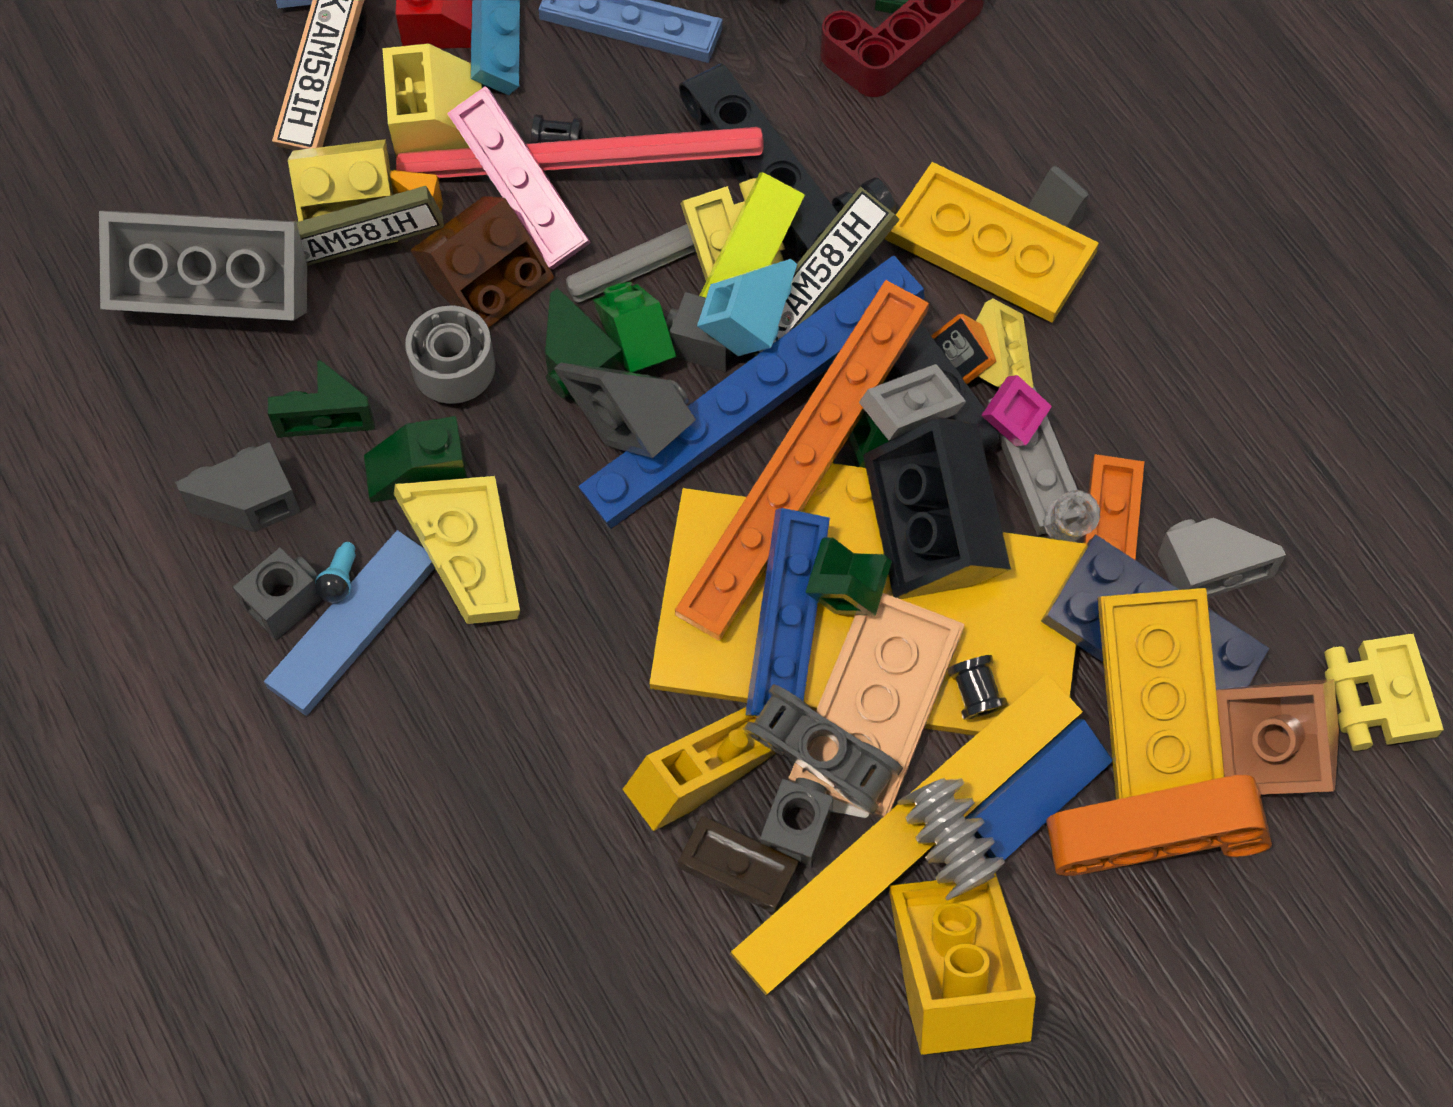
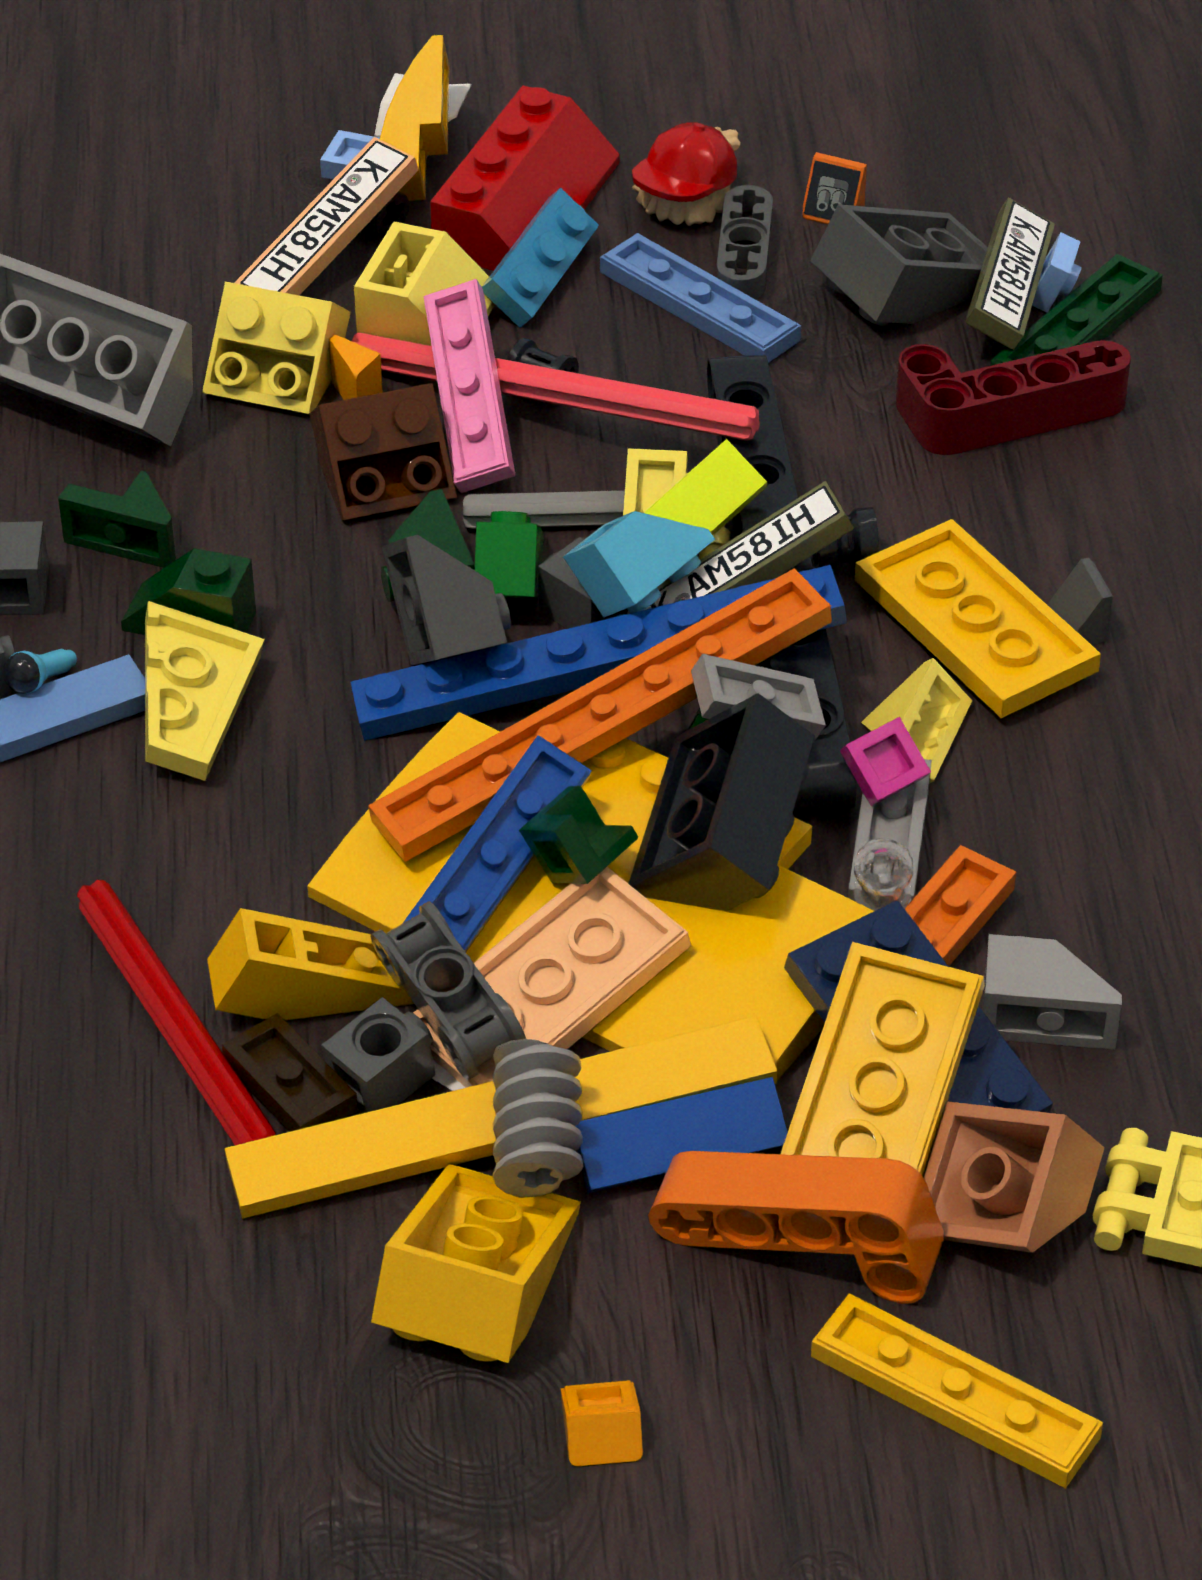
camera: 25 degrees right, 20 degrees down
(369, 225) = (275, 372): tile -> none
(450, 354) = (287, 513): light grey piece -> none
(622, 846) = (173, 1014): none -> red axle
(965, 346) = (870, 694): slope -> none
(977, 687) = (666, 998): black bush -> none
(1112, 1052) = (602, 1423): none -> light orange slope
(1328, 914) = (957, 1390): none -> yellow tile

